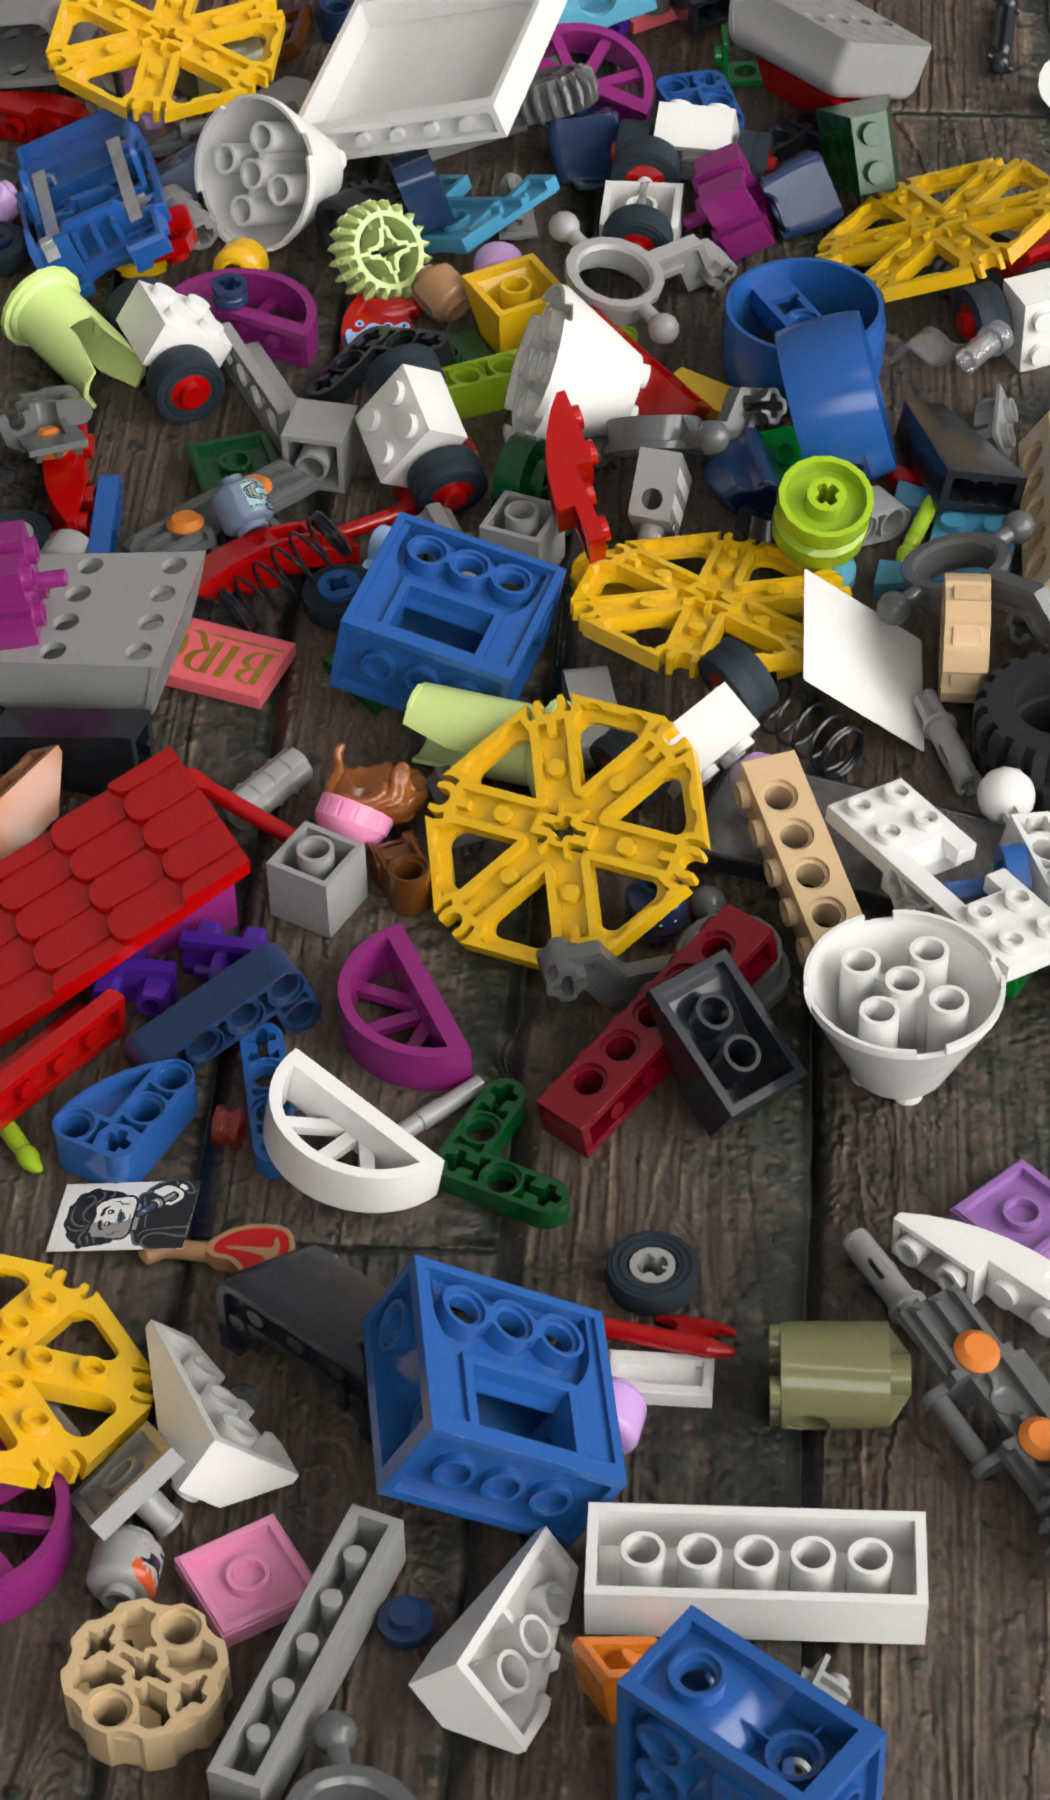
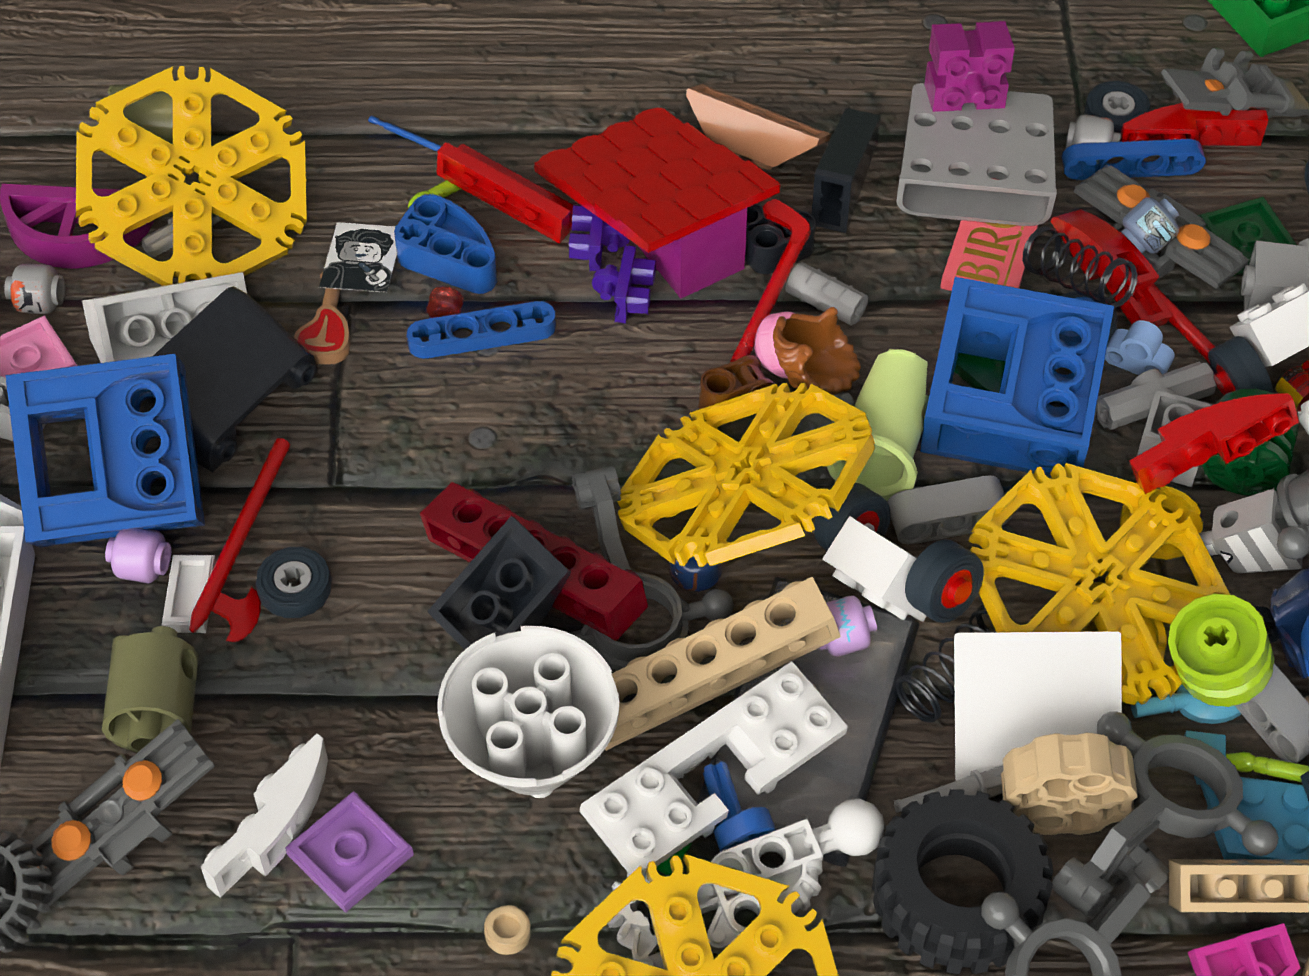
camera: 85 degrees right, 10 degrees up
(130, 1485) = (86, 273): light grey tile -> none
(228, 1009) = (555, 287): dark blue beam -> none
(317, 879) = (707, 326): light grey head -> none
(405, 1168) = (412, 397): white window -> none
(409, 1064) = (537, 427): magenta window -> none
(443, 1106) = (468, 431): light grey piece -> none
(485, 1166) = (418, 464): dark green beam -> none
(872, 1262) = (264, 748): light grey axle -> none

